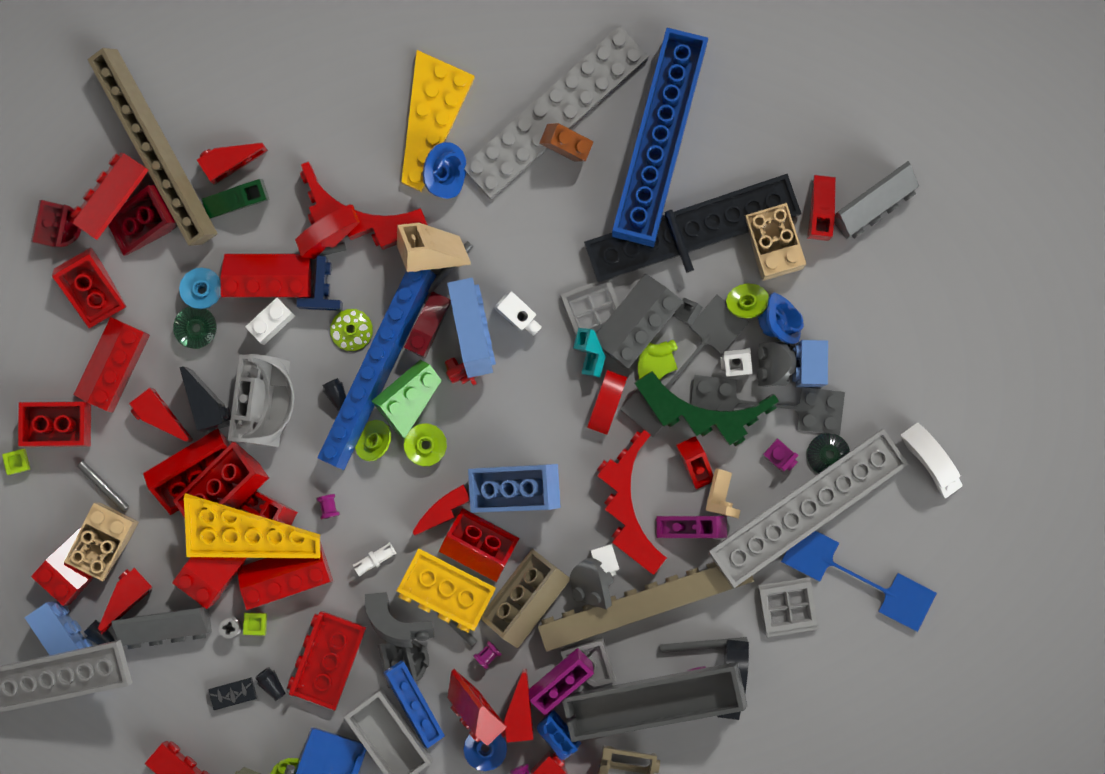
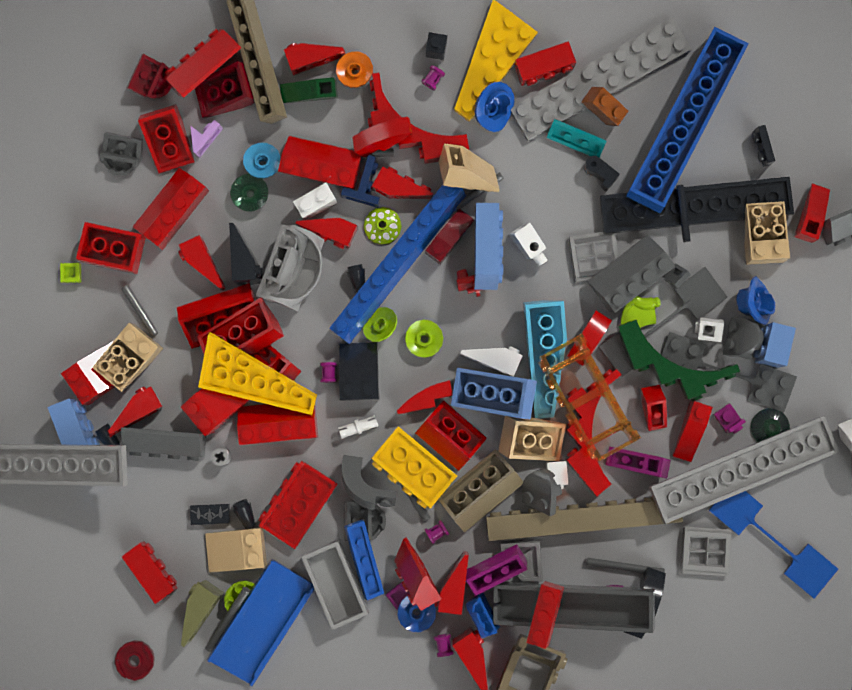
camera: 15 degrees right, 0 degrees up
(42, 316) = (121, 153): none -> dark grey slope
(129, 283) = (203, 141): none -> lavender slope
(255, 623) = (243, 458): lime plate -> none
(270, 726) = (236, 550): none -> tan slope
(271, 161) = (351, 62): none -> orange dish
(299, 346) = (332, 229): none -> red slope
(356, 283) = (397, 187): none -> red slope
(361, 498) = (358, 371): none -> black slope
(365, 117) = (436, 46): none -> black brick
(370, 153) = (433, 77): none -> magenta bush
(407, 397) = (418, 294): wedge -> none
(458, 735) = (396, 595): none -> magenta tile
(490, 109) = (545, 64): none -> red brick
(513, 448) = (499, 359): none -> white slope
(543, 185) = (576, 139): none -> teal plate
(562, 428) = (544, 332): none -> medium azure wedge
(569, 528) = (531, 439): none -> tan slope
(580, 214) = (602, 171): none -> black leg
(587, 342) = (585, 283): teal slope -> none
(623, 718) = (545, 614): none -> red brick
(632, 457) = (602, 389): none -> clear orange windscreen
(718, 494) = (667, 439): tan bracket -> none
(743, 477) = (692, 430): none -> red slope
(747, 138) = (762, 140): none -> black plate
(747, 300) = (730, 278): lime dish -> none

